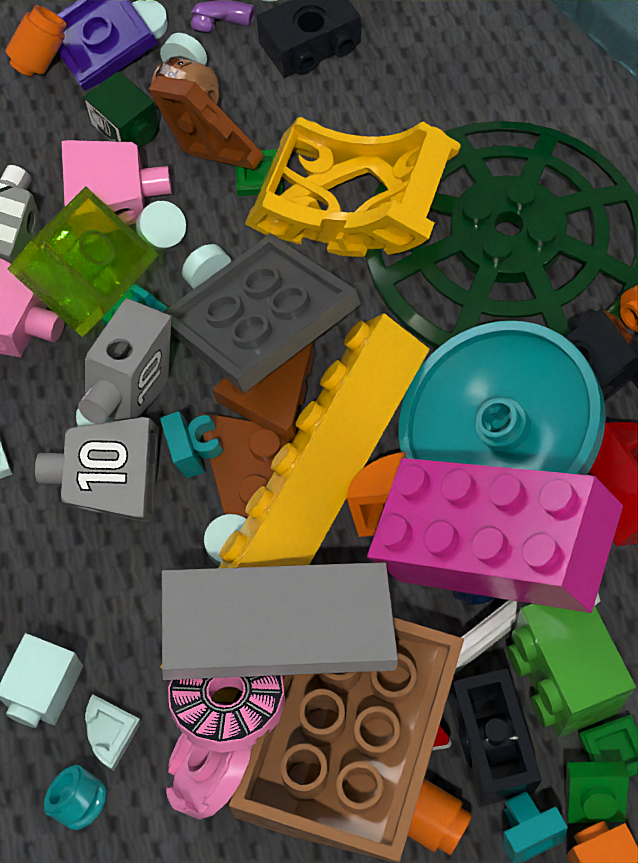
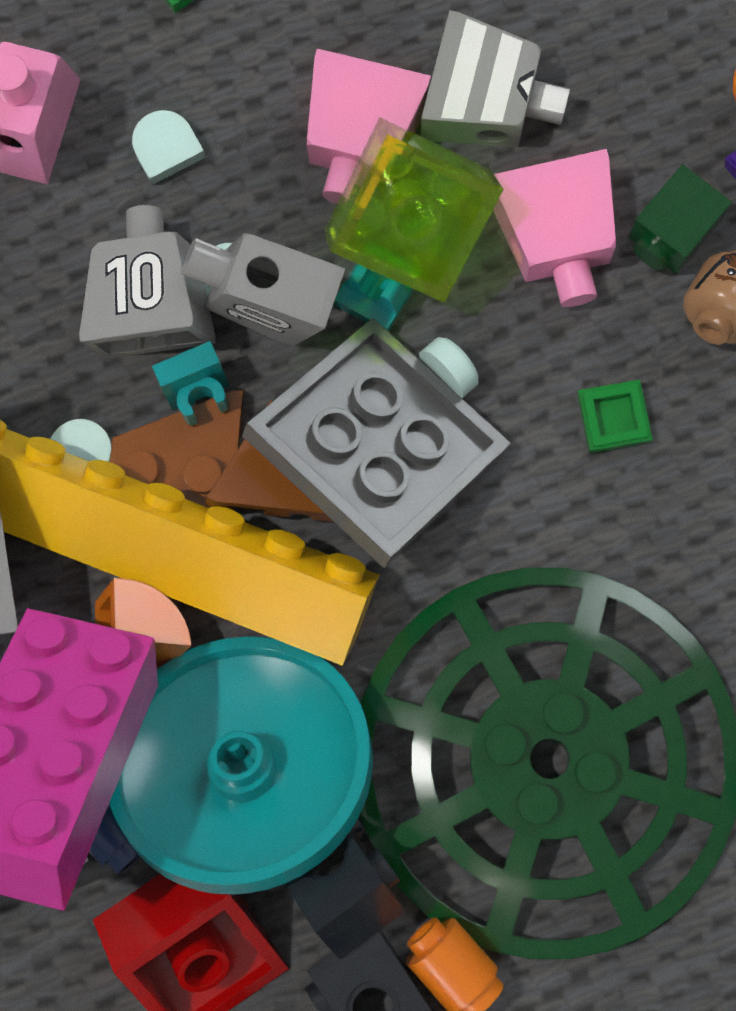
camera: 85 degrees right, 15 degrees up
(161, 225) = (508, 300): light aqua tile -> none
(201, 124) = (655, 327): dark orange wing -> none
(393, 220) = (526, 609): yellow fence -> none

